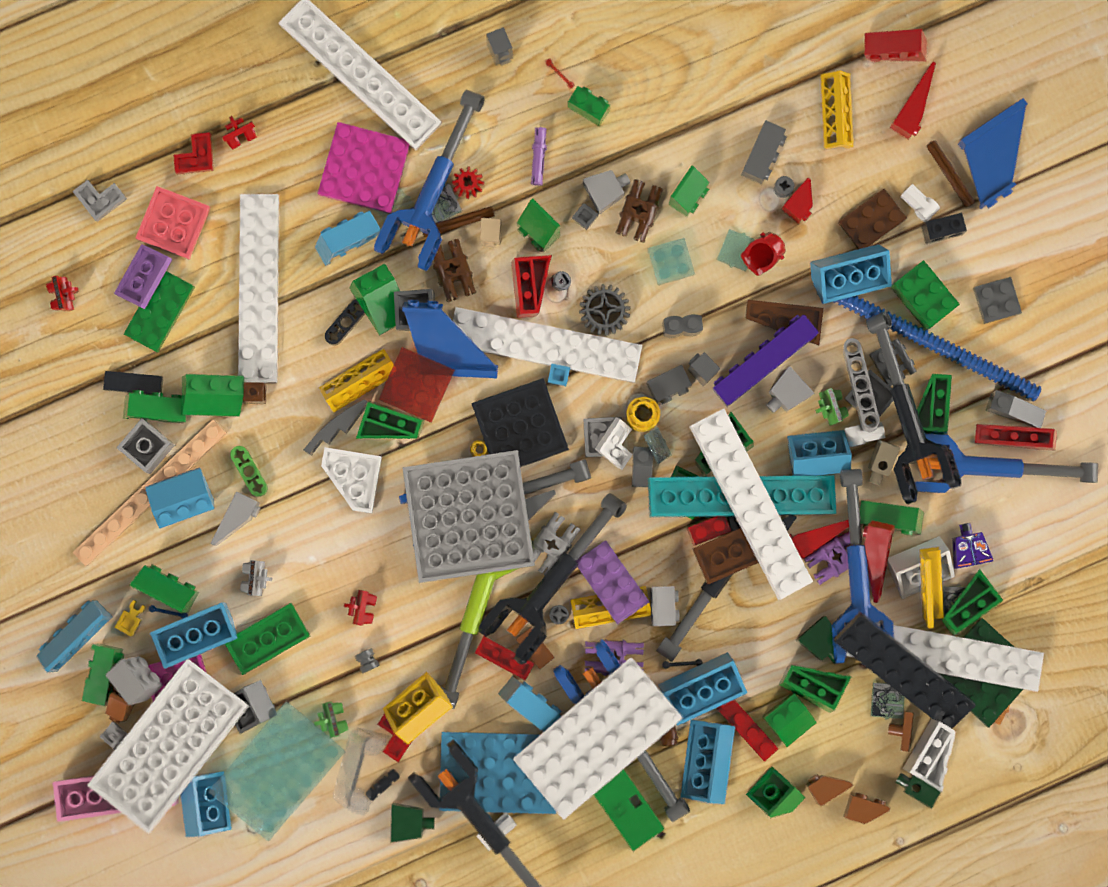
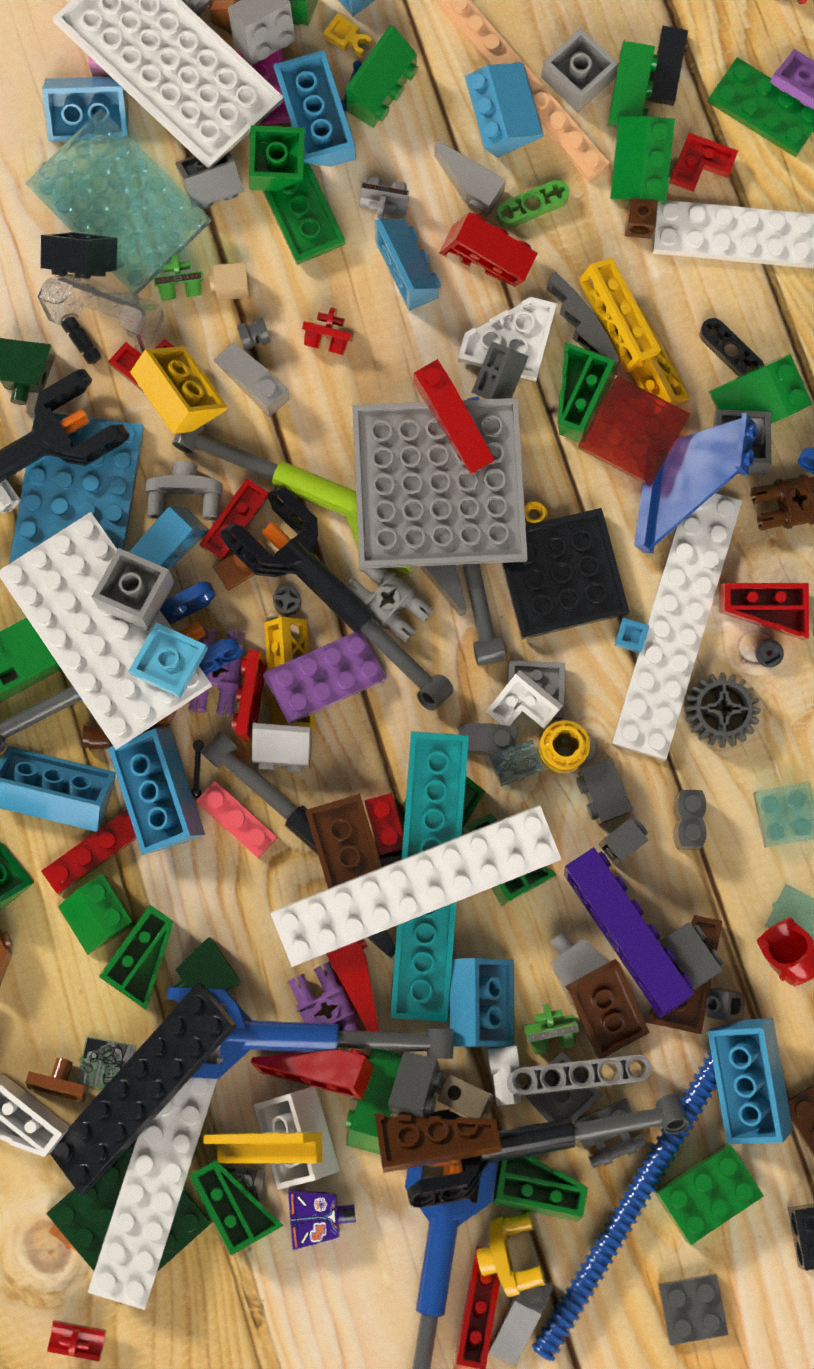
camera: 95 degrees right, 5 degrees down
(201, 355) = (701, 154): none -> red plate
(237, 657) = (275, 157): none -> green slope
(288, 498) = (489, 248): none -> red wedge
(304, 556) = (406, 262): none -> dark azure slope
(323, 792) = (78, 254): none -> black brick
(329, 682) = (230, 281): none -> tan brick
(330, 402) = (620, 312): none -> yellow fence
(382, 482) = (499, 372): none -> dark grey hinge
(399, 658) = (253, 379): none -> light grey slope
(423, 510) = (452, 416): none -> red slope
(479, 696) = (184, 481): none -> light grey connector
(572, 718) = (133, 589): none -> light grey brick
(619, 687) = (168, 659): none -> medium azure plate
(631, 632) = (249, 694): none -> red plate
(714, 632) = (236, 819): none -> coral plate
(774, 317) = (693, 954): none -> dark grey brick
(802, 293) = (725, 1004): none -> dark grey plate
(815, 370) = (607, 1009): none -> reddish brown plate
(883, 491) = (415, 1086): none -> dark grey brick
(918, 479) = (432, 1140): none -> reddish brown wing
(982, 427) = (497, 1256): none -> yellow connector
(1067, 696) = (76, 1340): none -> red hips

